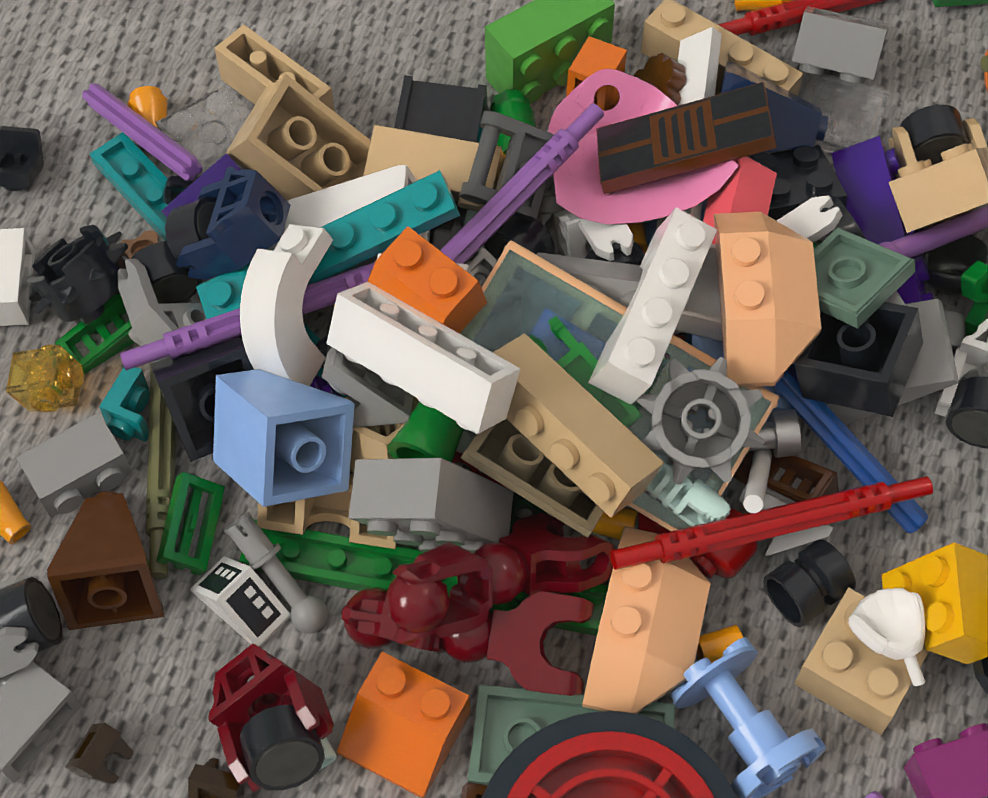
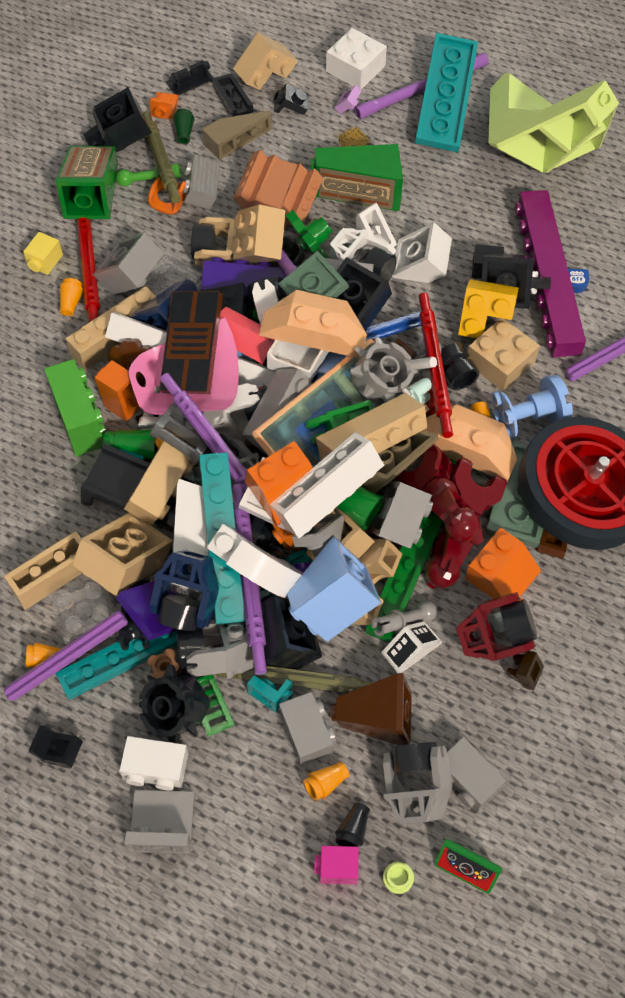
camera: 80 degrees left, 0 degrees up
(45, 378) = (241, 738): clear yellow brick -> none
(91, 753) = (495, 733): dark brown tile -> none
(180, 559) = (358, 664): green tile -> none
(647, 326) = (343, 384): white arch -> none
(892, 625) = (500, 327): white piece -> none

